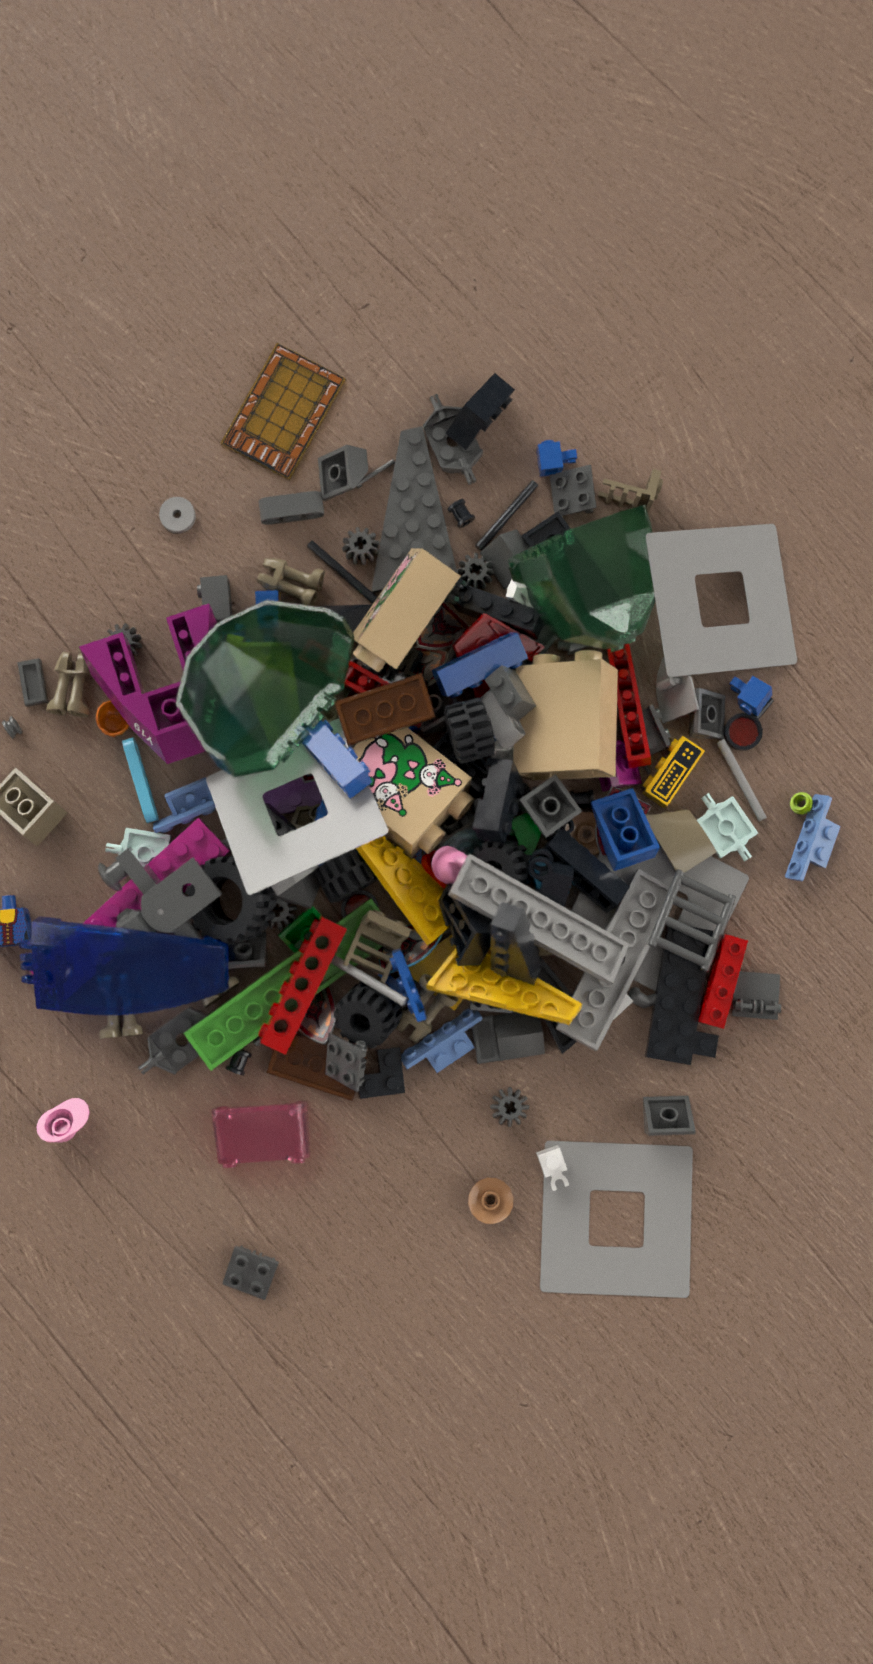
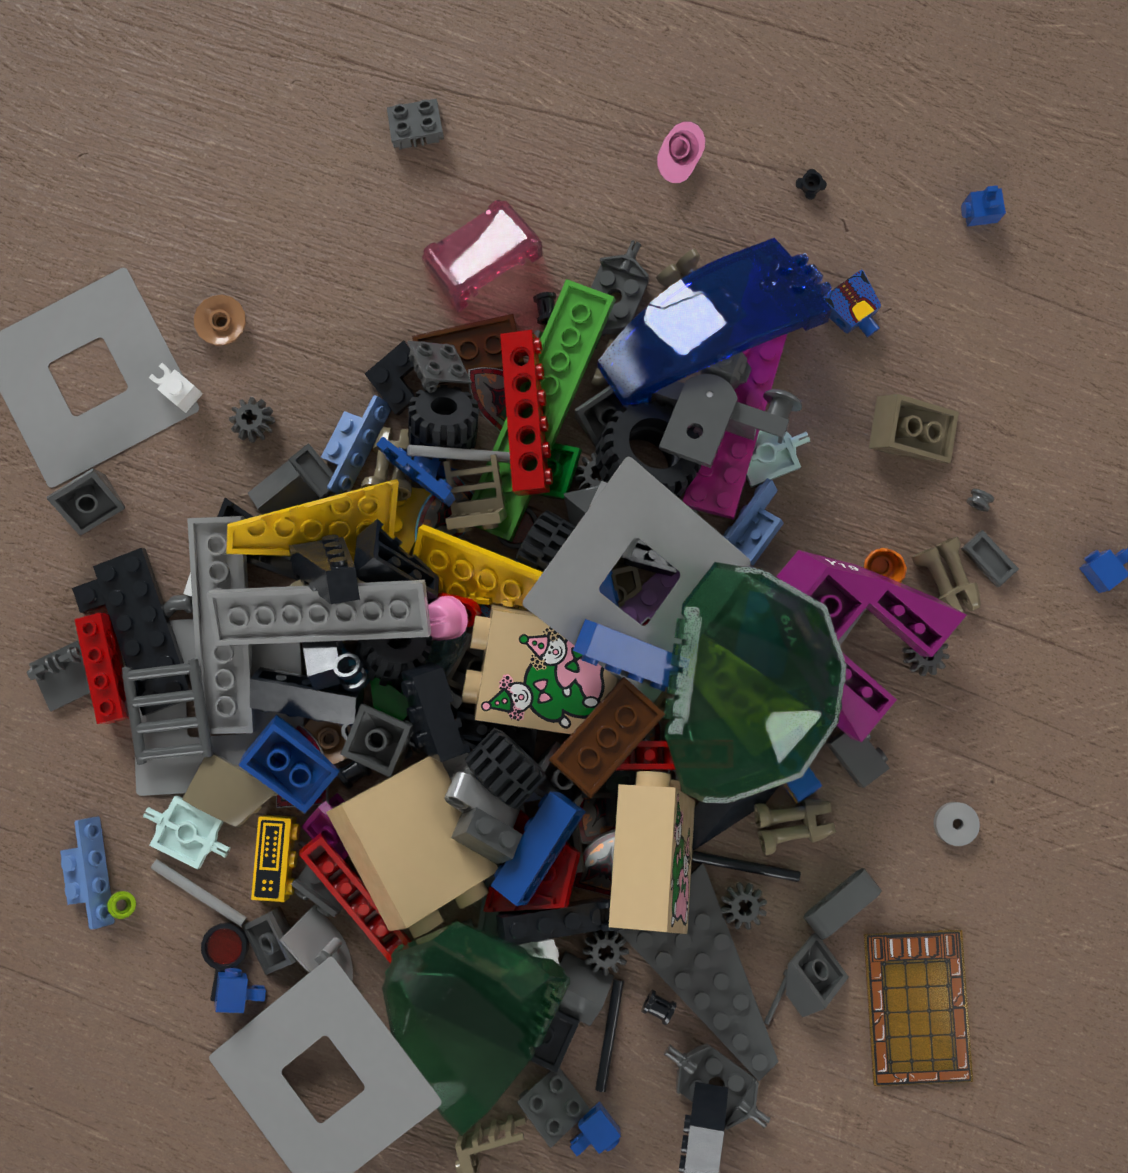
camera: 155 degrees right, 0 degrees up
(140, 780) = (817, 523): medium azure beam -> none

